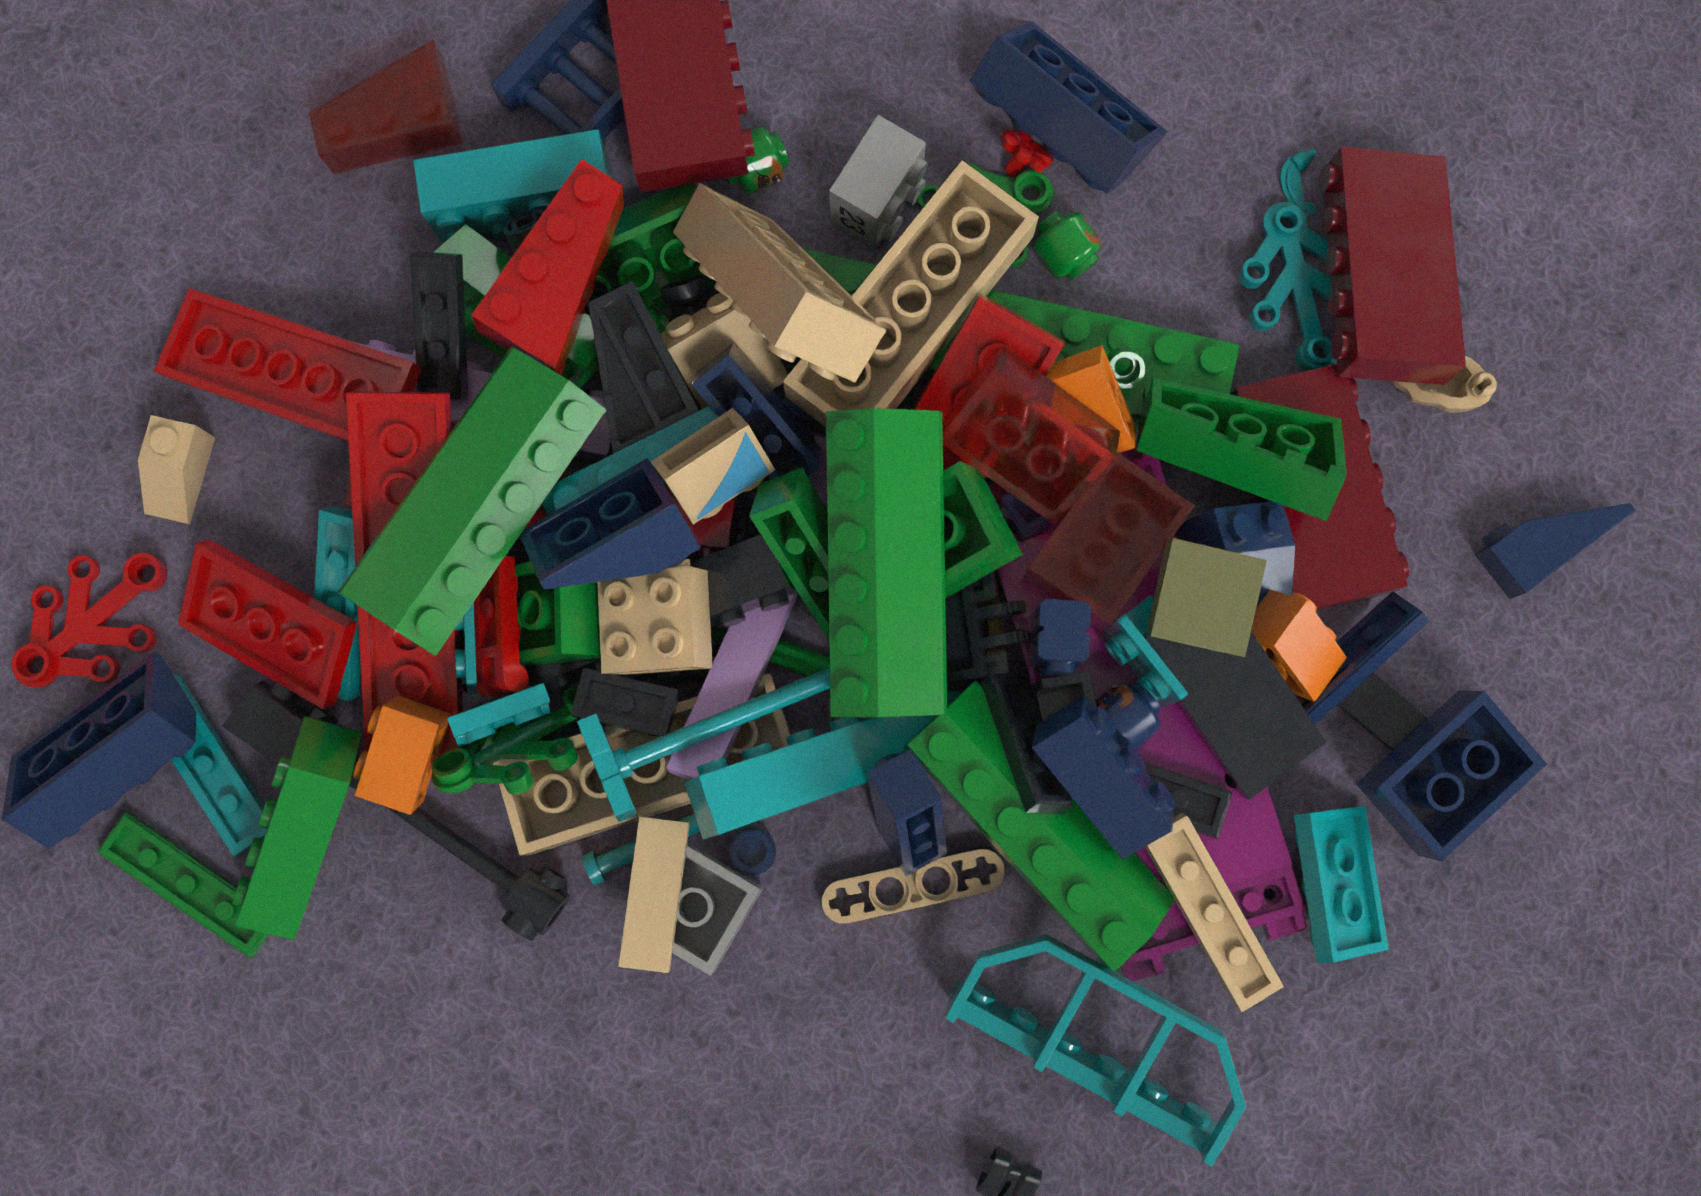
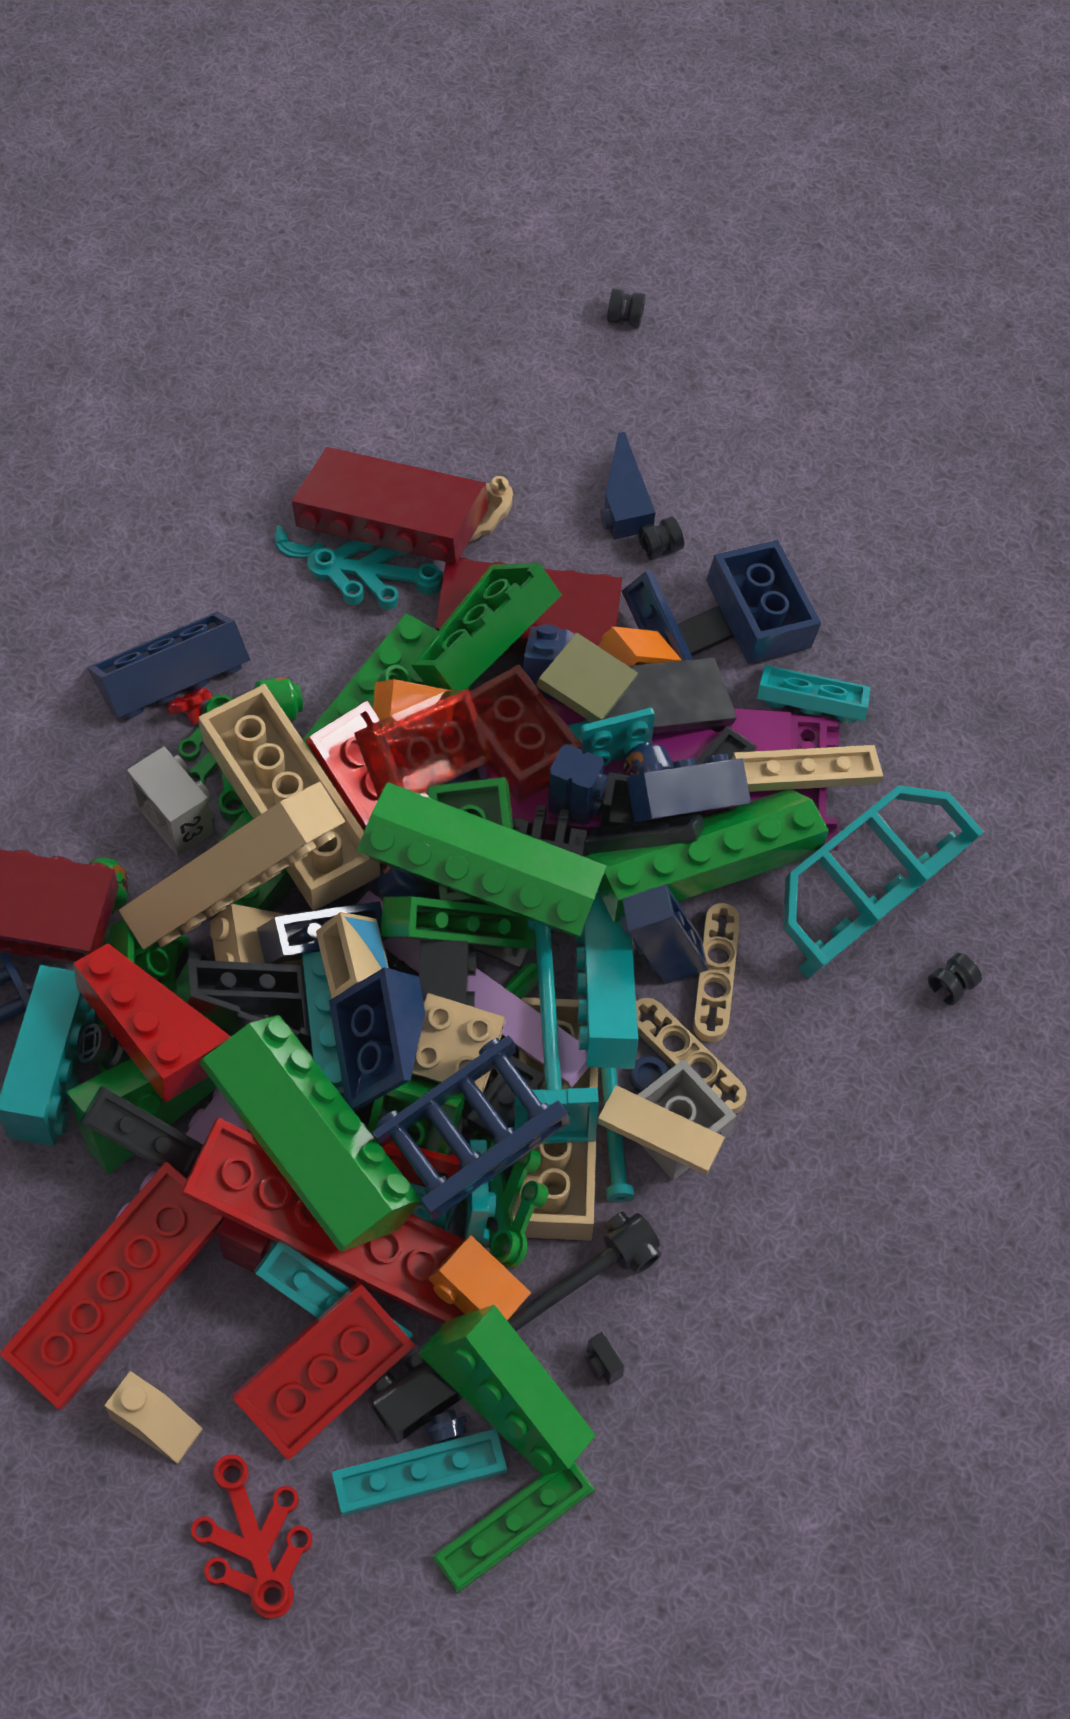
camera: 75 degrees left, 20 degrees down
(99, 753) = (374, 1547): dark blue slope -> none
(258, 775) = (446, 1426): none -> dark blue plate
(389, 918) = (604, 1359): none -> black plate
(525, 731) = (475, 1168): none -> dark blue fence
(786, 884) = (692, 1052): none -> tan beam
(1496, 612) = (661, 538): none -> black wheel

